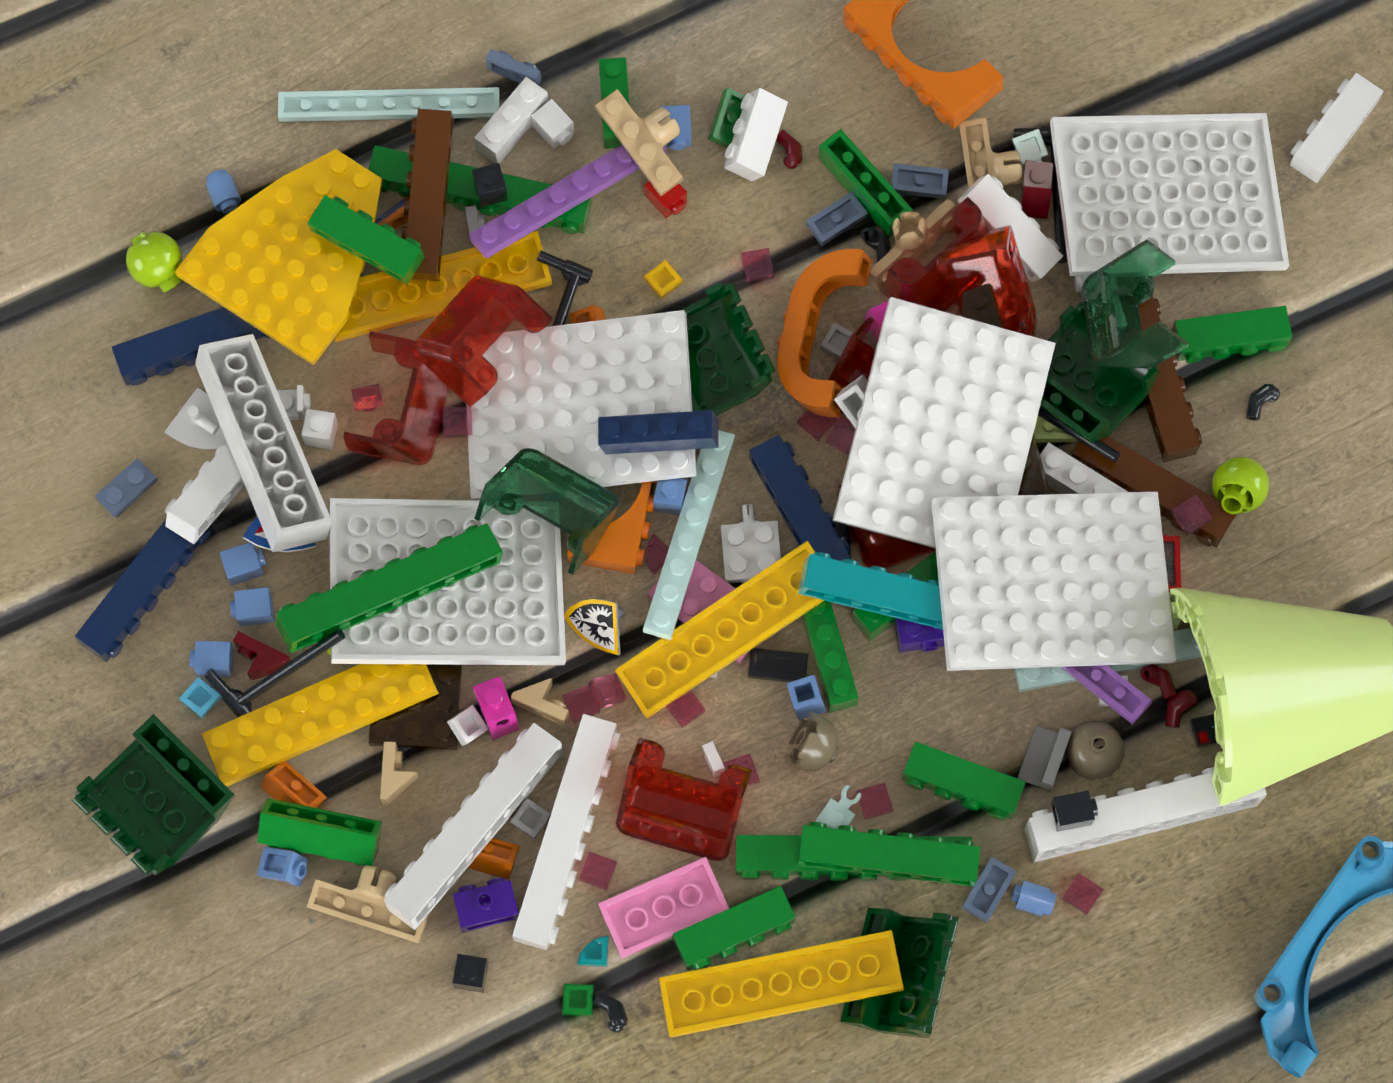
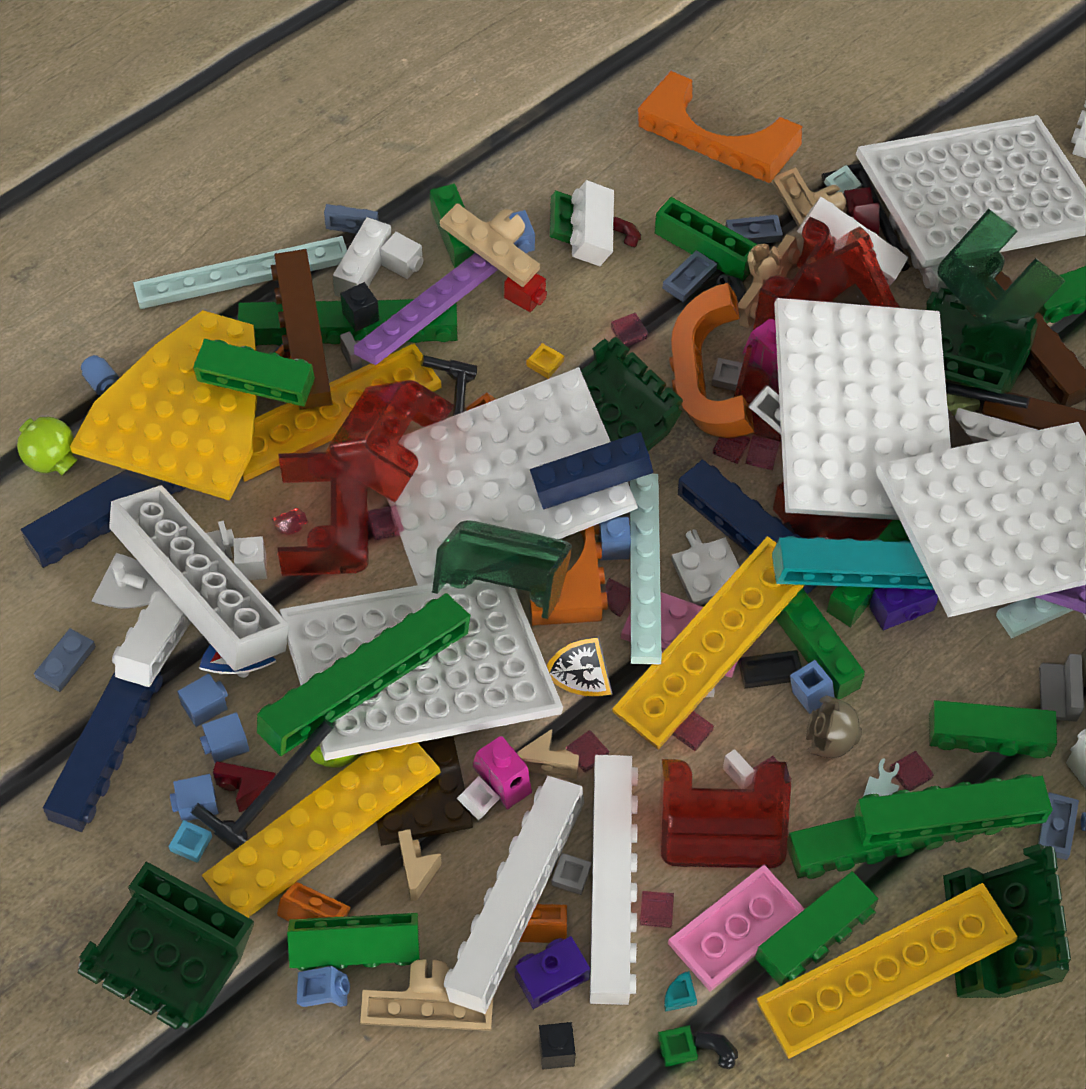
camera: 15 degrees left, 15 degrees down
(607, 690) = (610, 731): clear pink tile -> none

